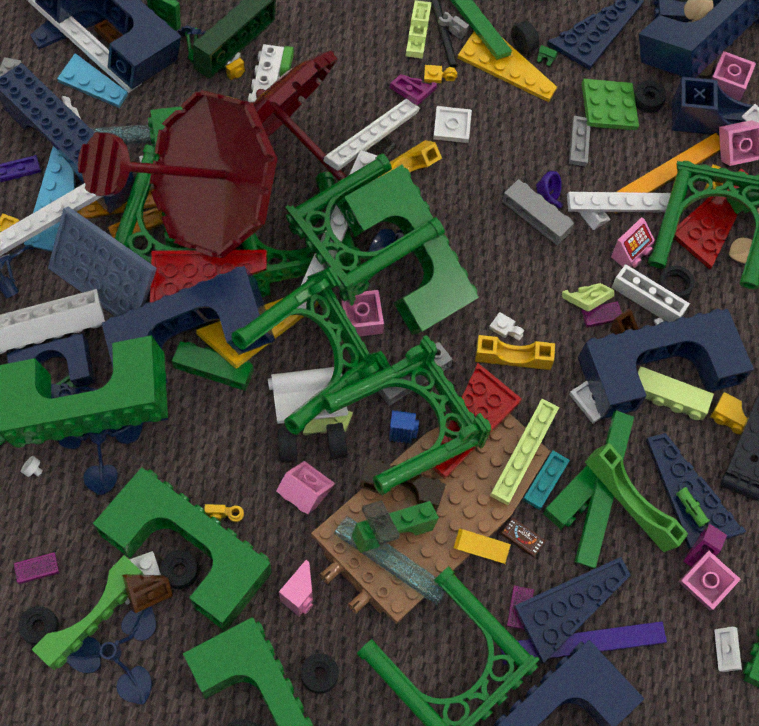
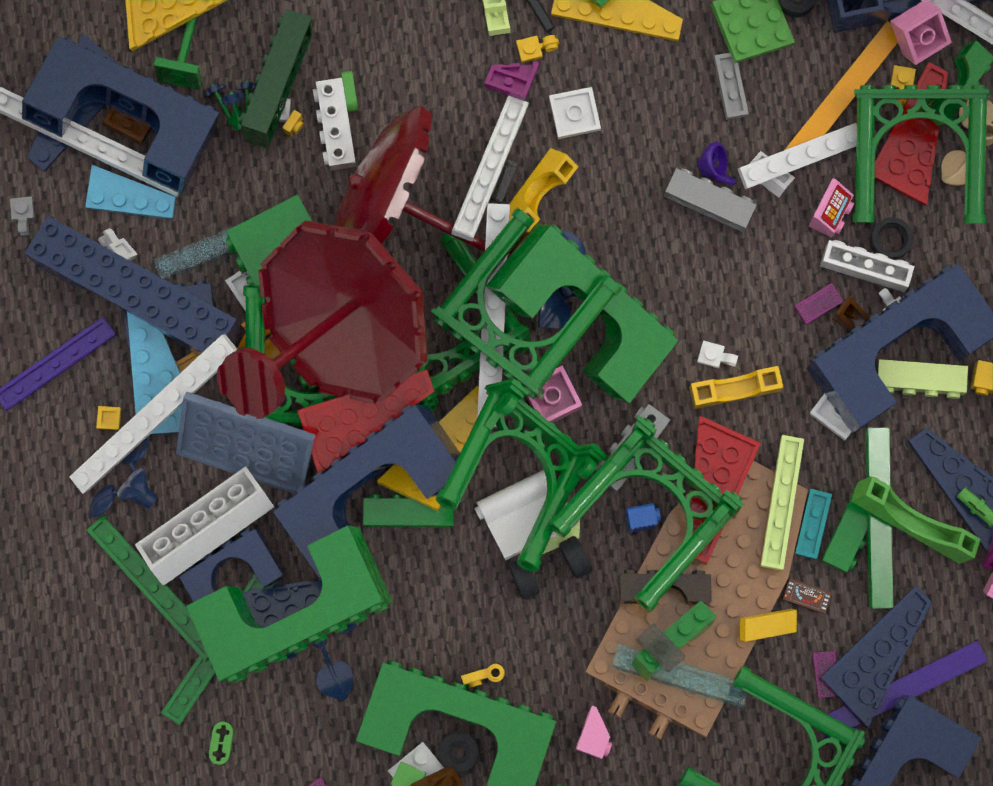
camera: 15 degrees left, 15 degrees up
(31, 467) = (257, 693): white tile -> none
(305, 487) = (559, 618): bright pink slope -> none
(590, 296) = (798, 288): yellowish green wing -> none

